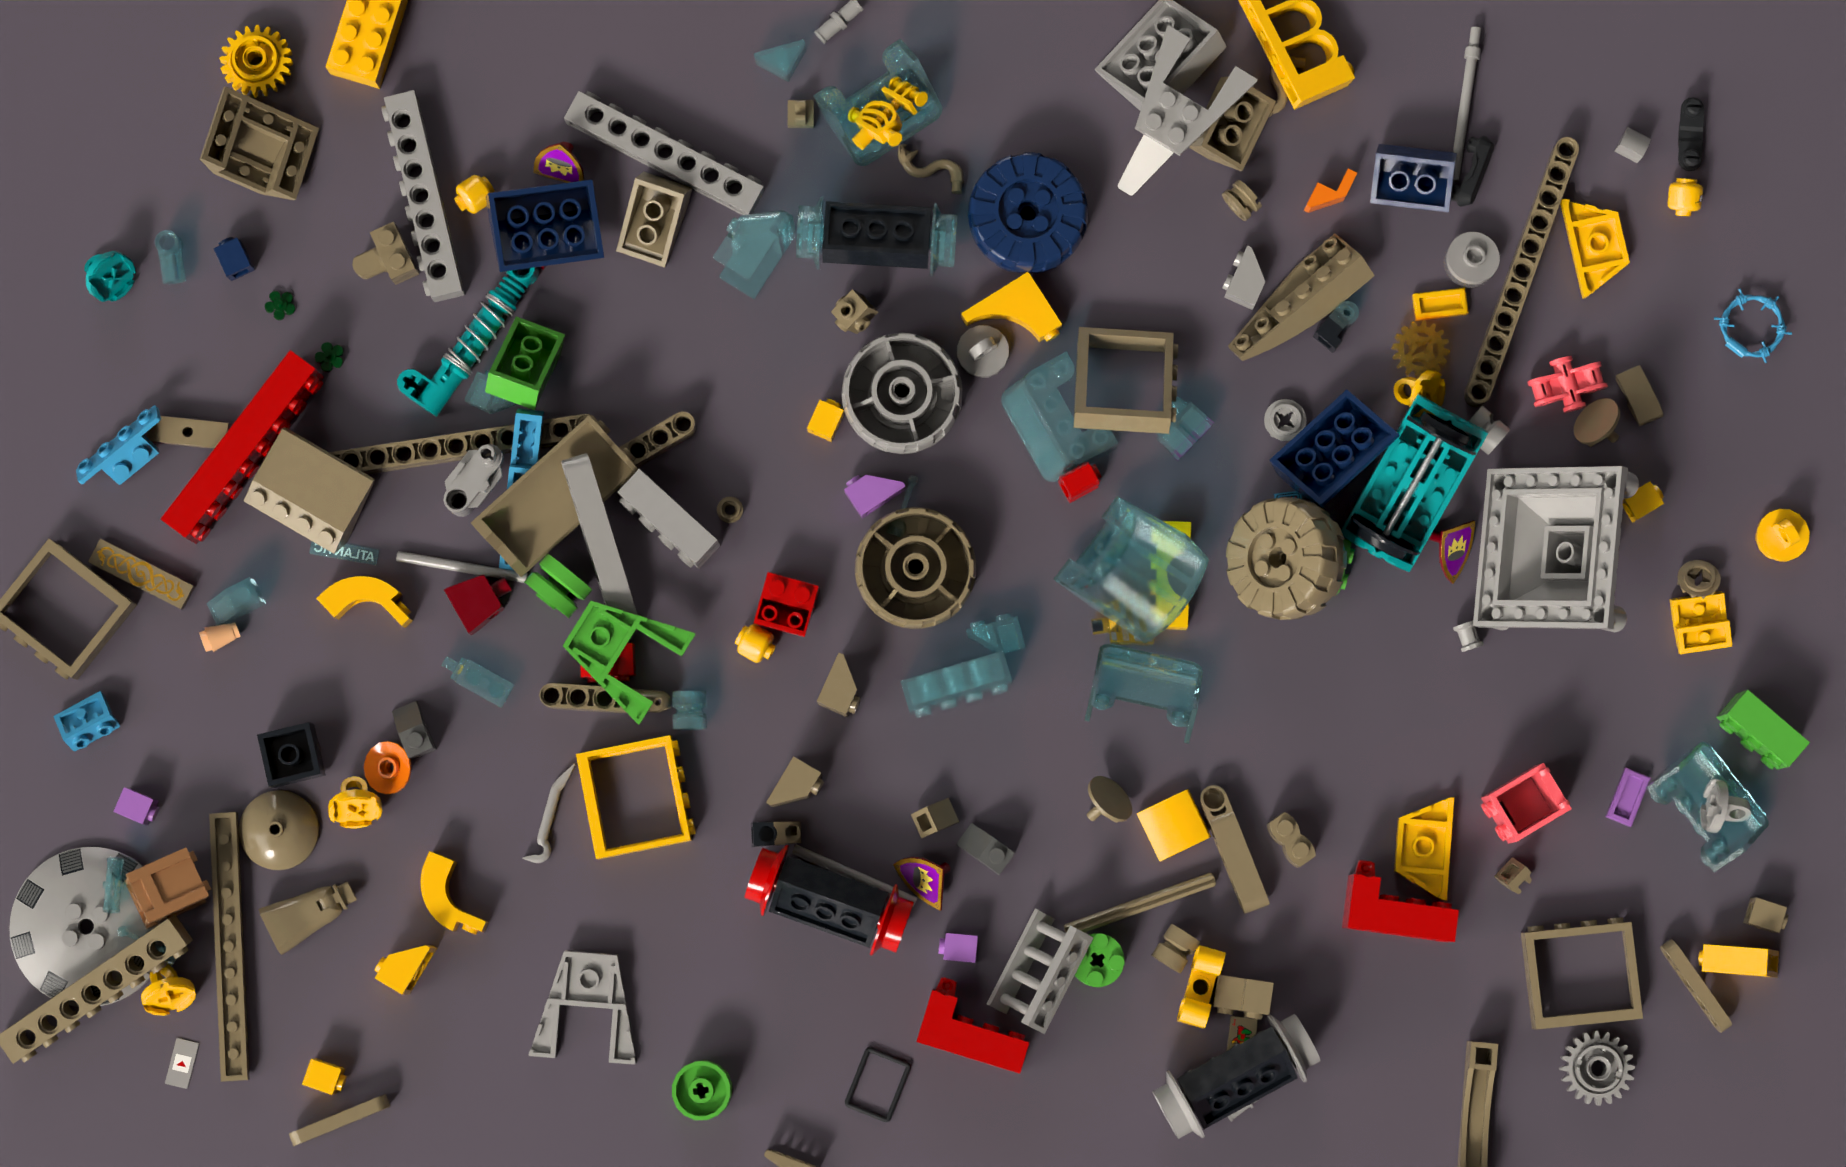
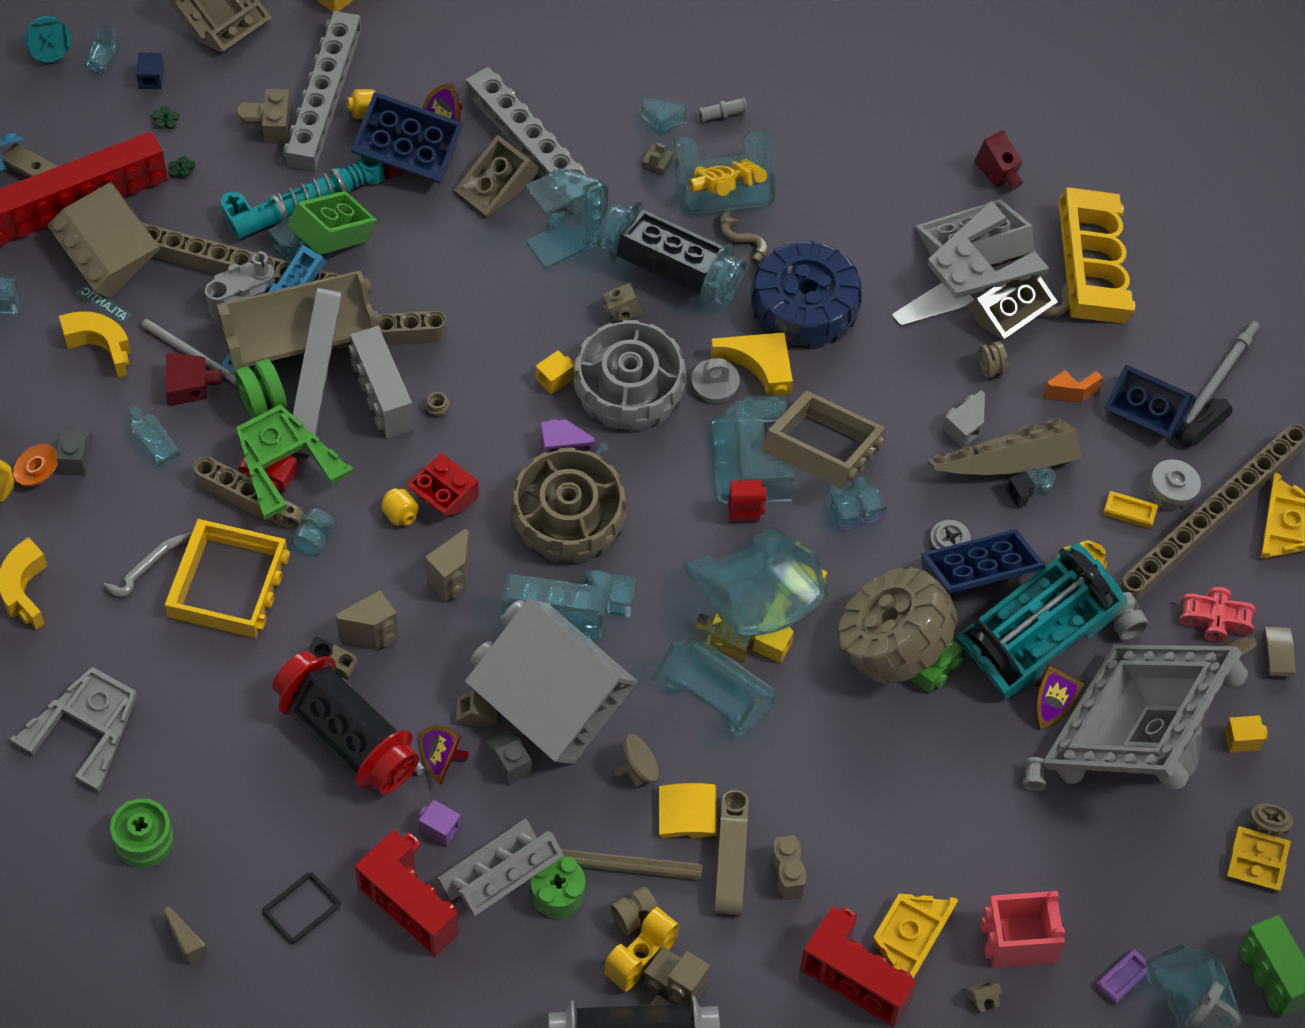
camera: 20 degrees right, 25 degrees down
(993, 771) = (549, 680): none -> light grey brick
(1413, 341) = (1099, 529): clear yellow gear -> none

